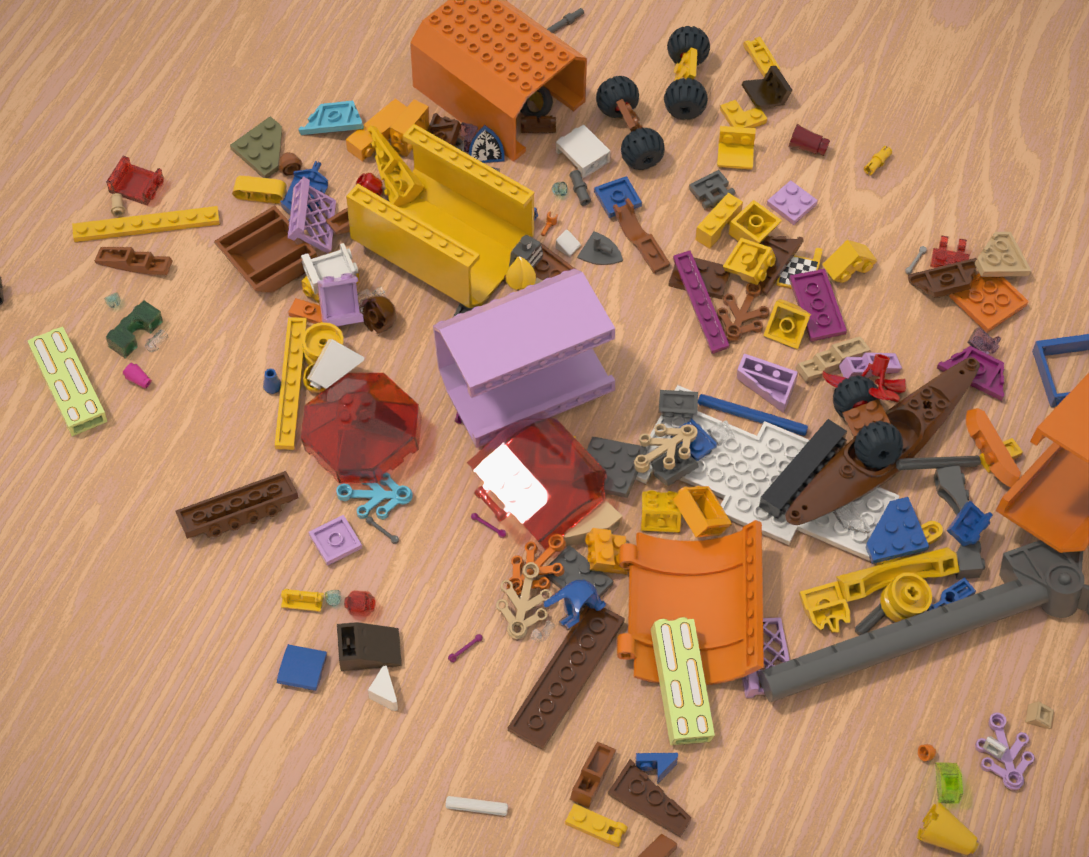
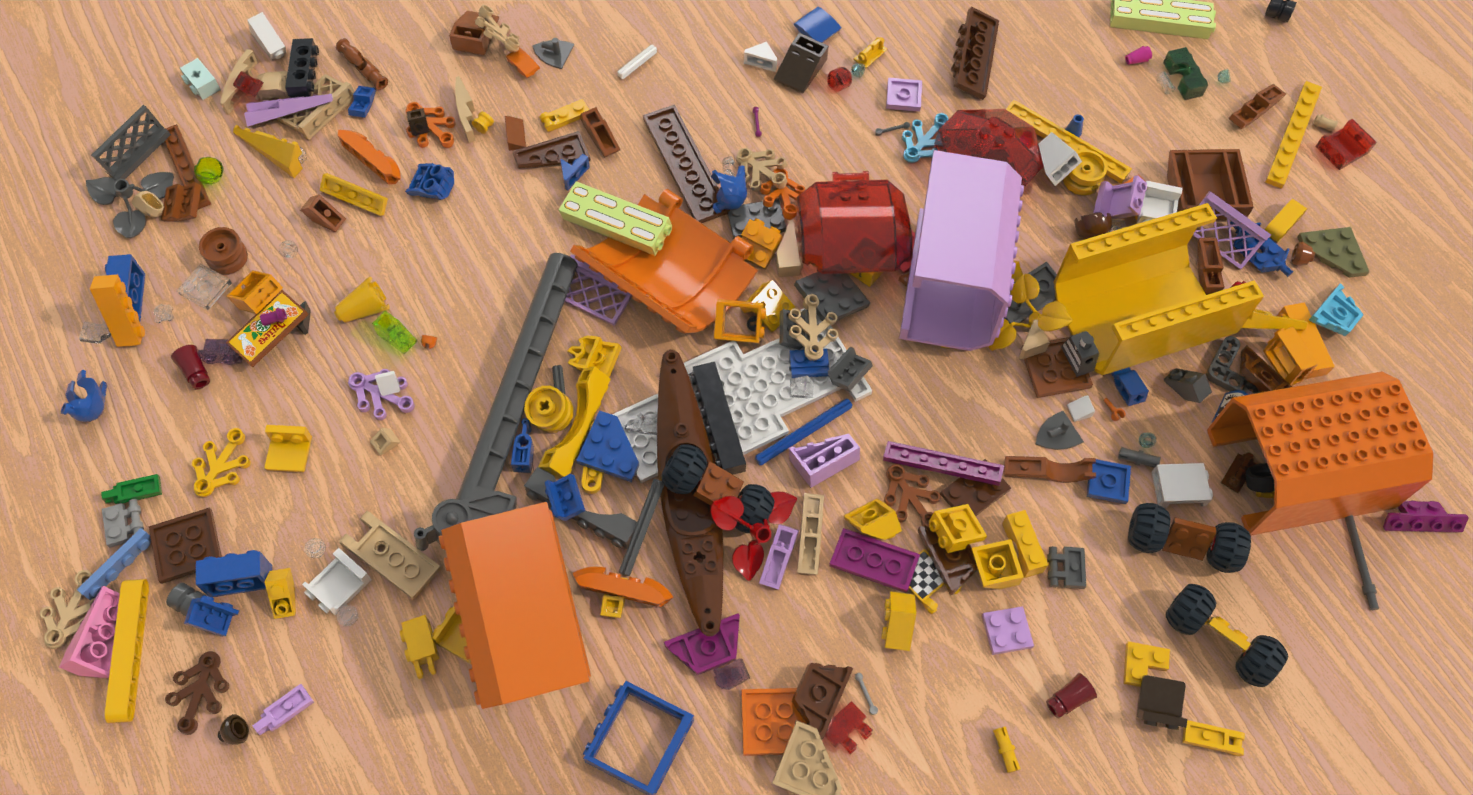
camera: 125 degrees right, 5 degrees up
(736, 147) = (1101, 621): yellow bracket -> none

